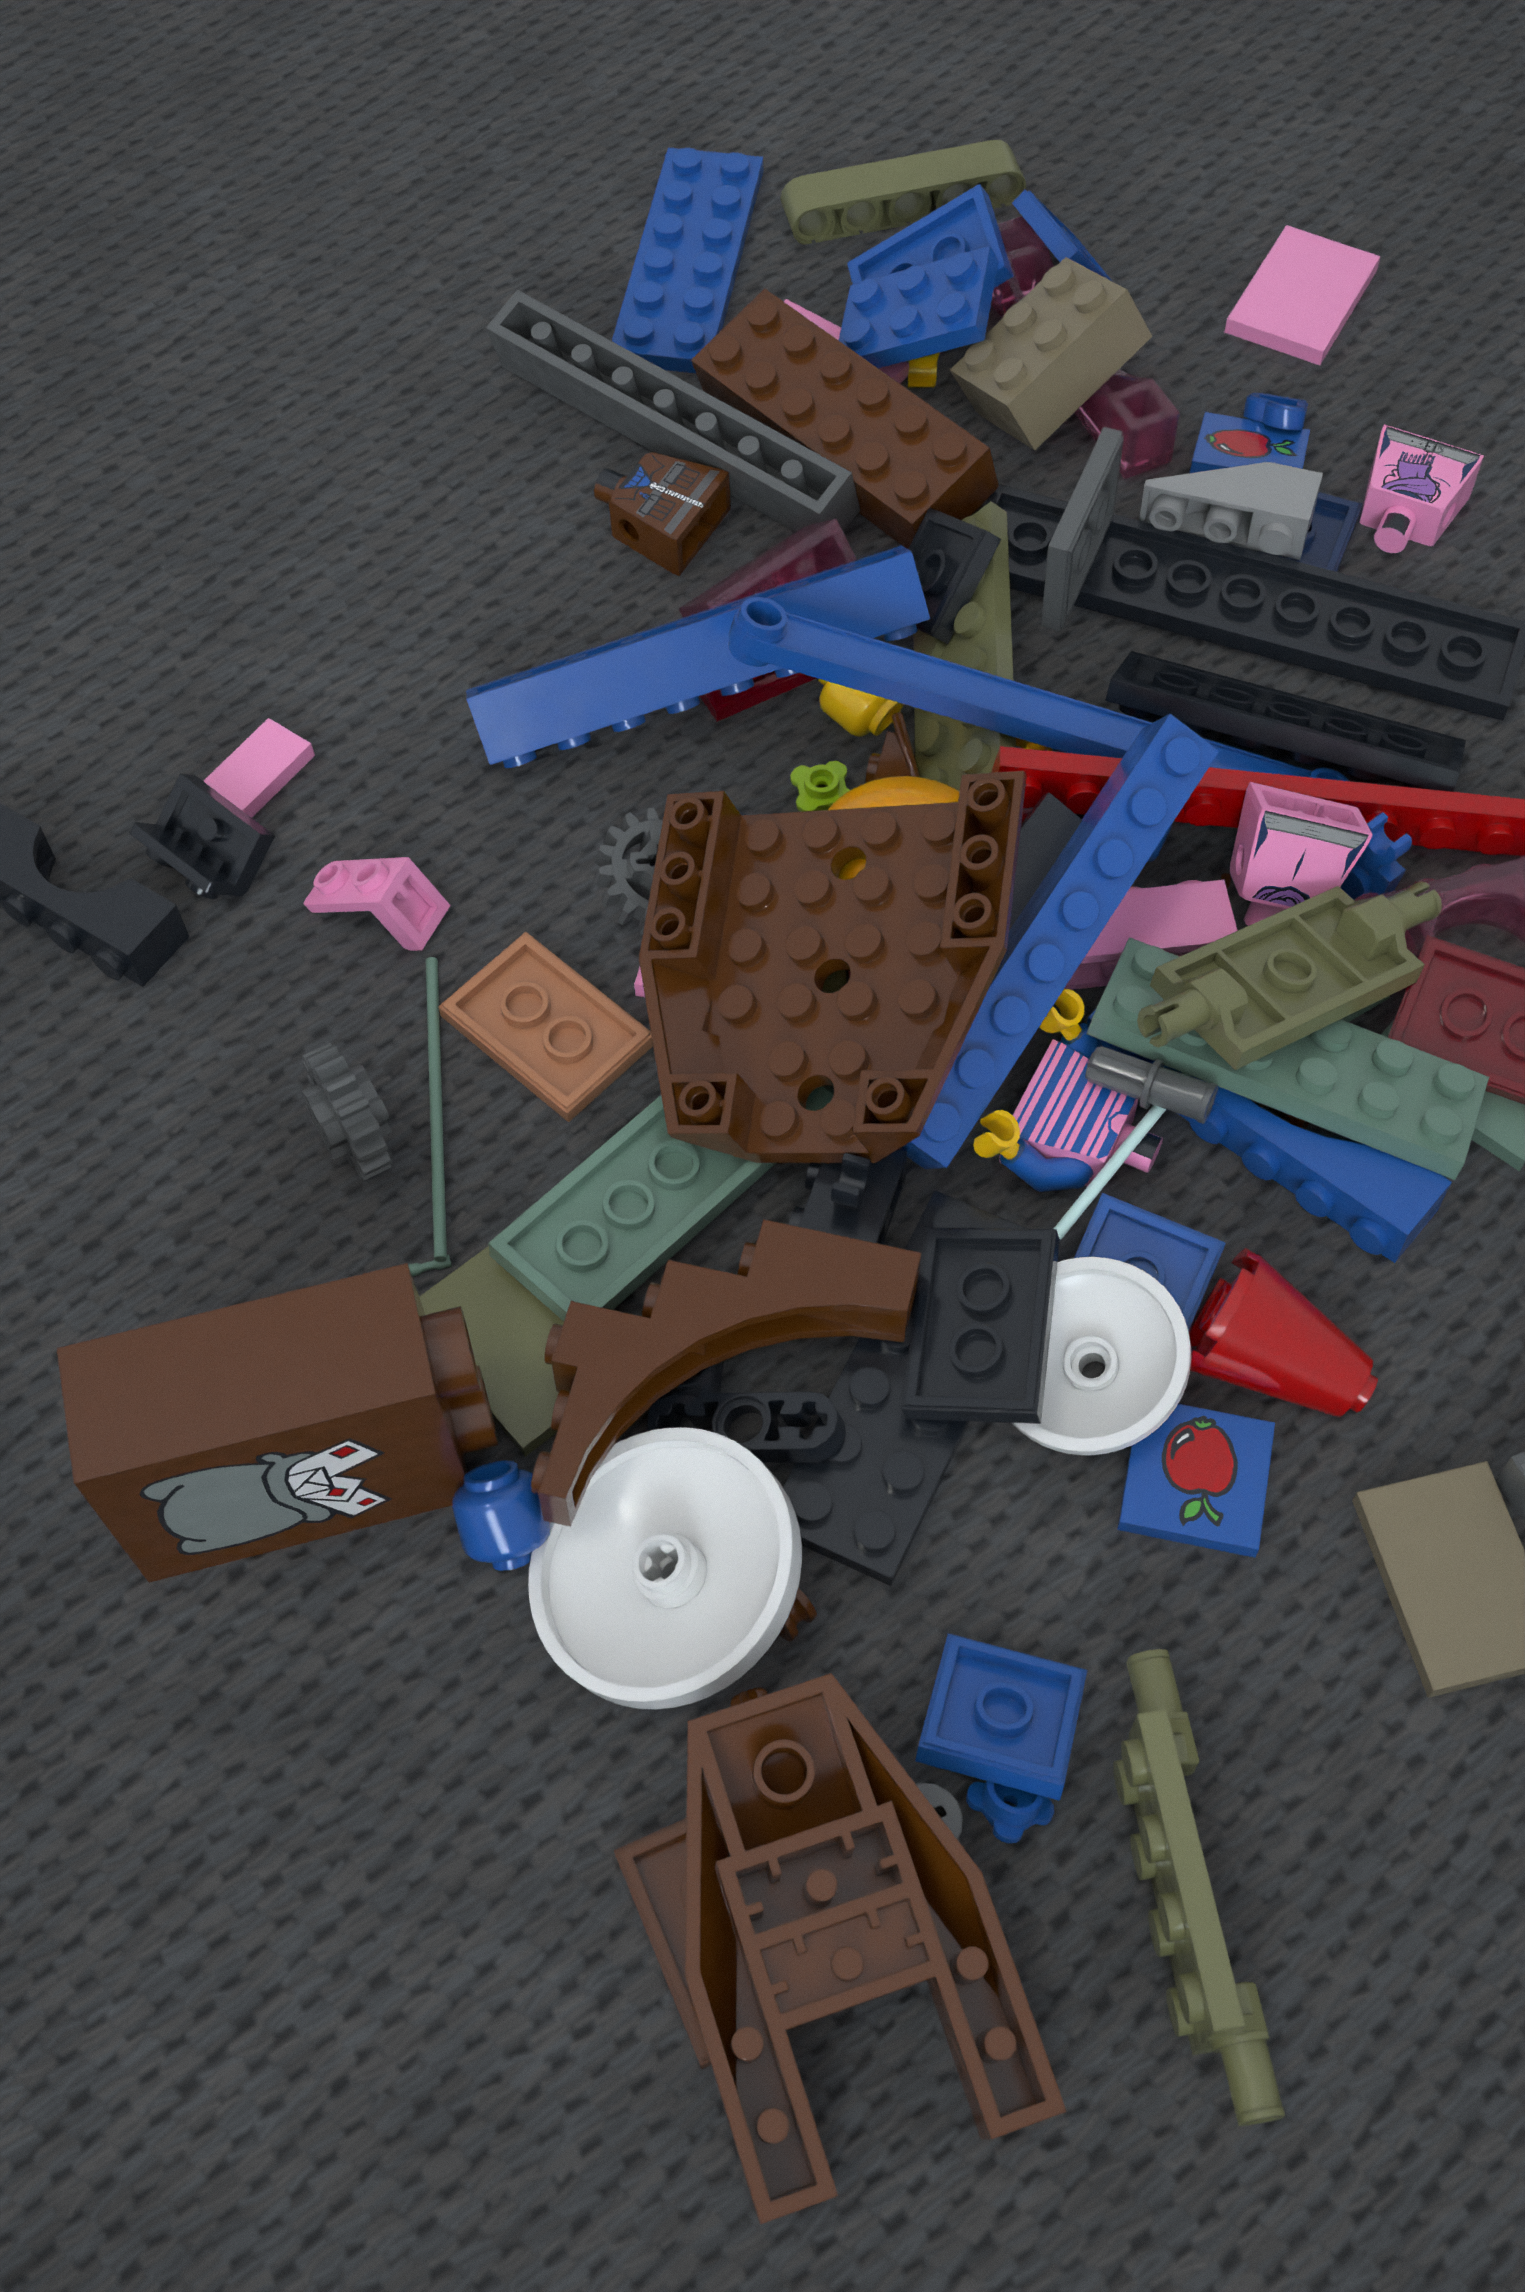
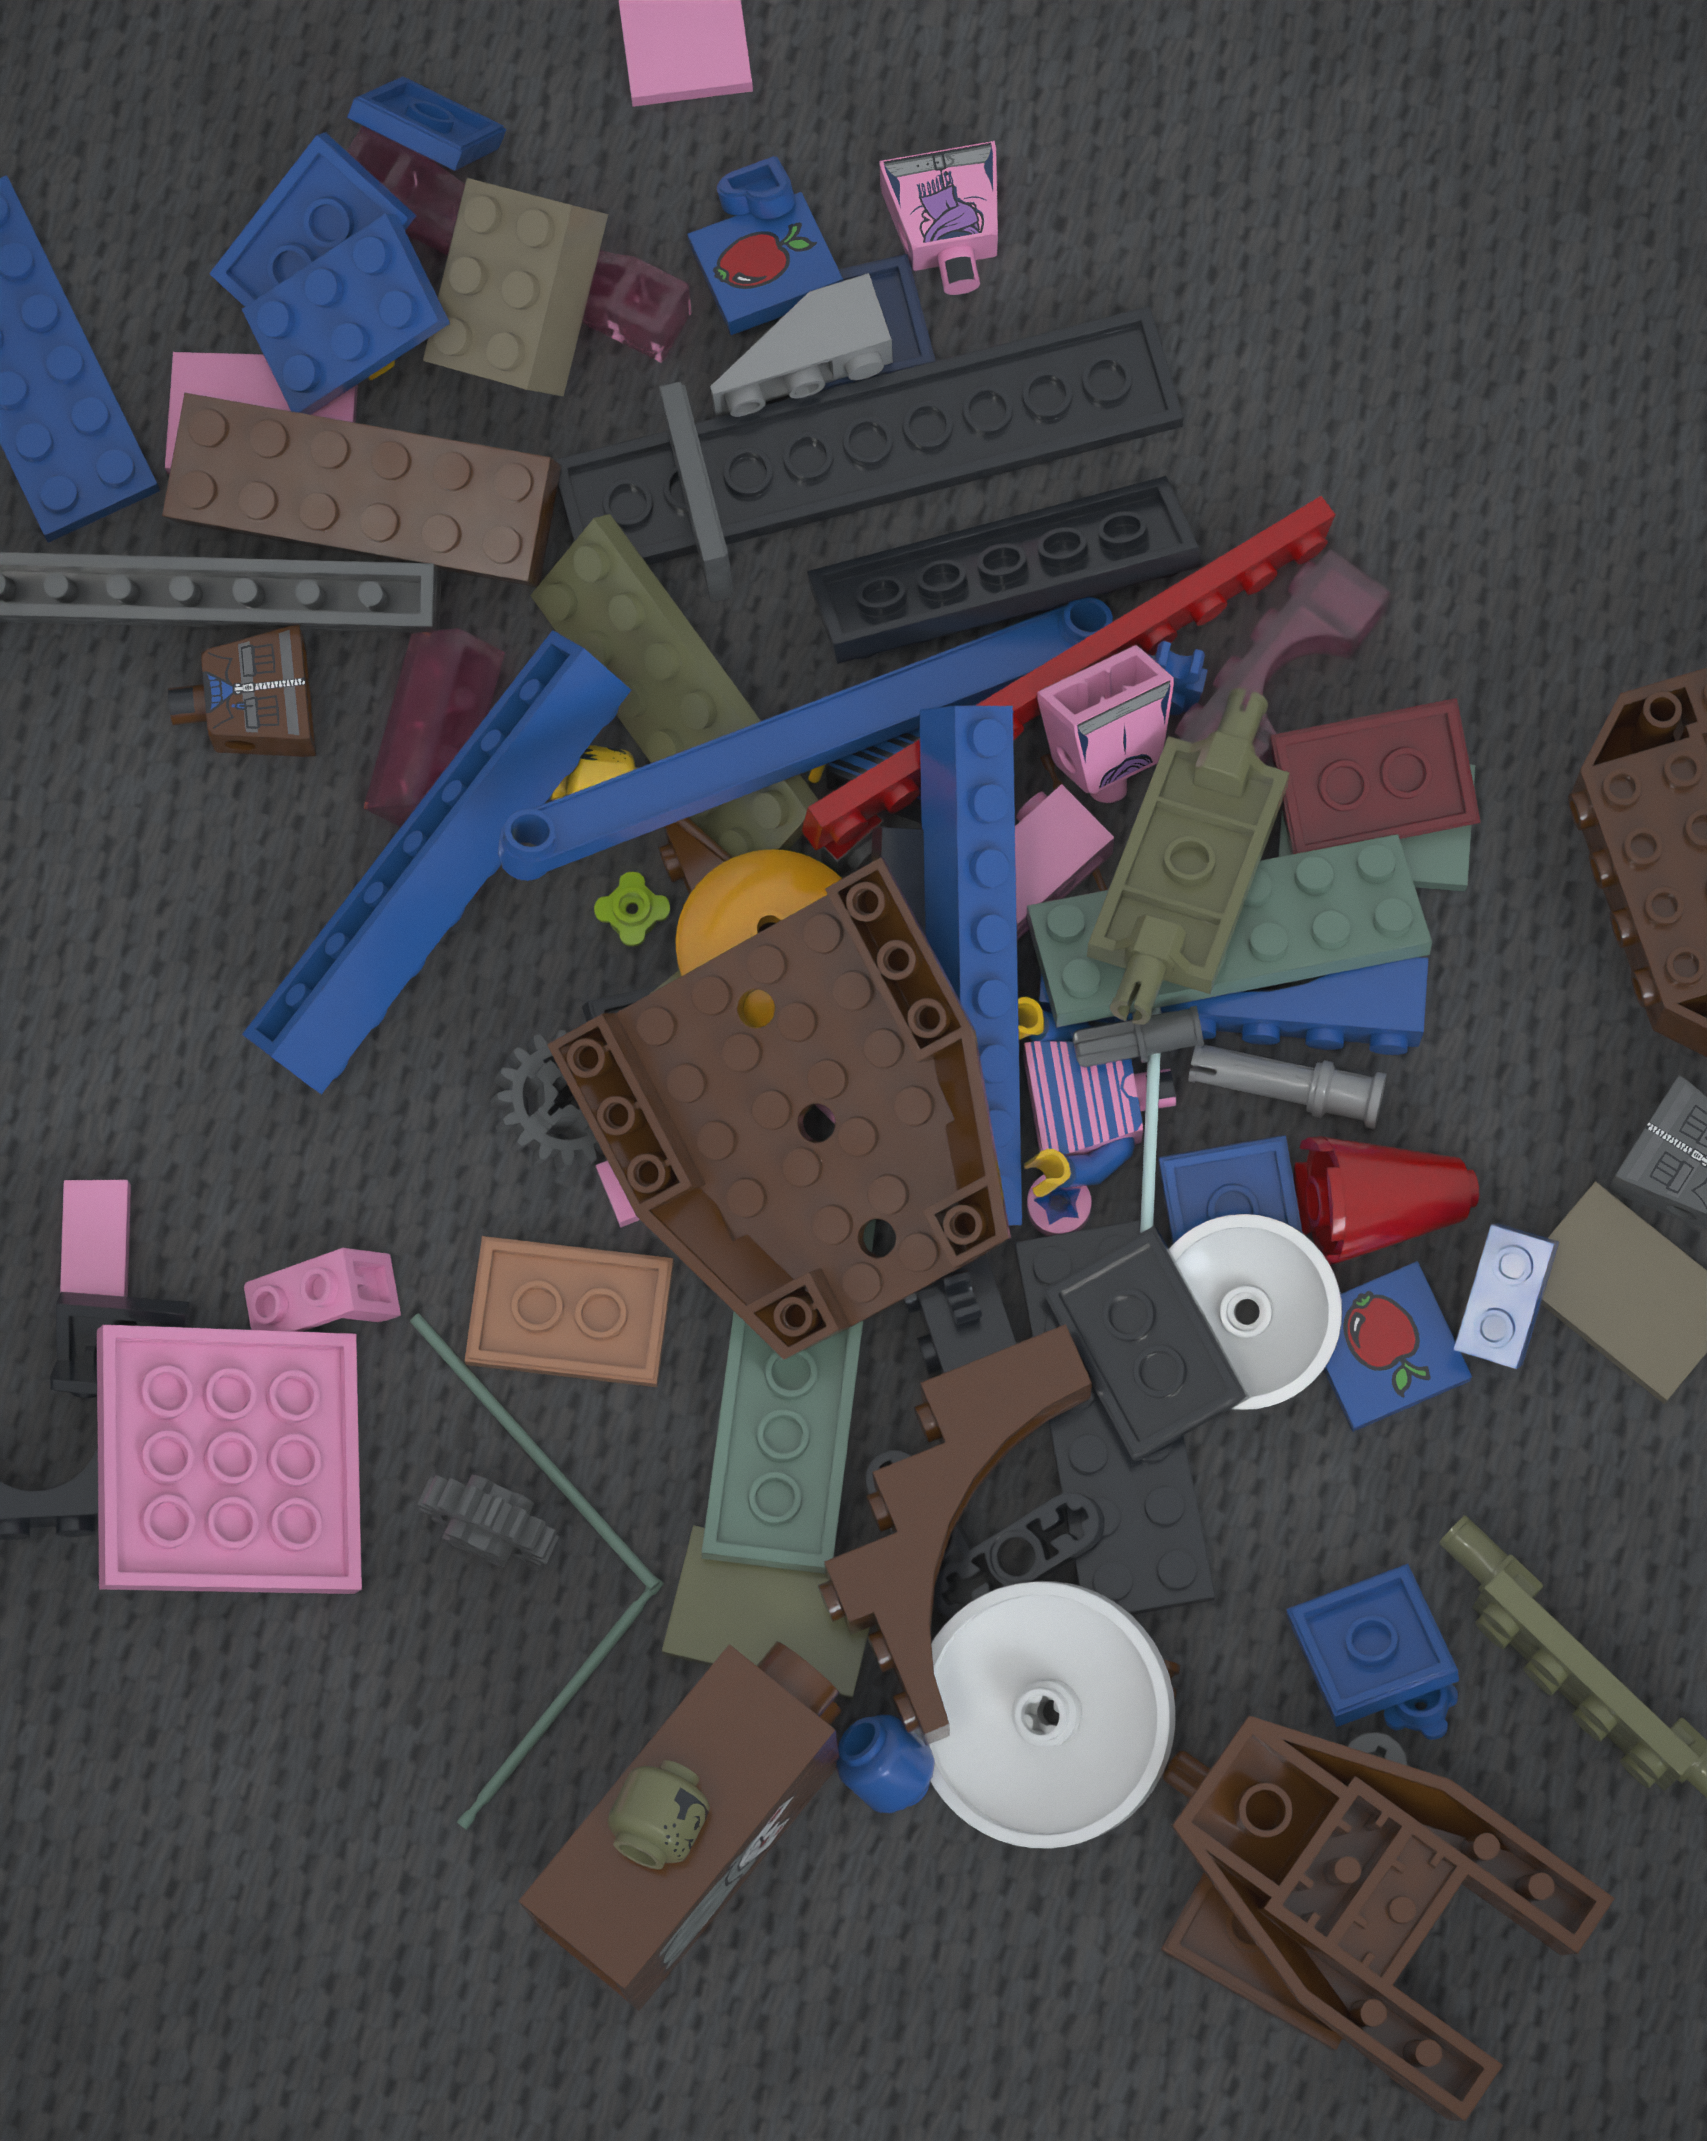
camera: 35 degrees left, 15 degrees up
(198, 950) = (228, 1460): none -> bright pink plate
(218, 1346) = (658, 1814): none -> olive head
(897, 190) = (189, 132): olive beam -> none
(950, 565) = (597, 608): black tile -> none
(993, 1188) = (1059, 1211): none -> tile
(1281, 1232) = (1319, 1088): none -> light grey pin
(1339, 1492) = (1506, 1295): none -> brick

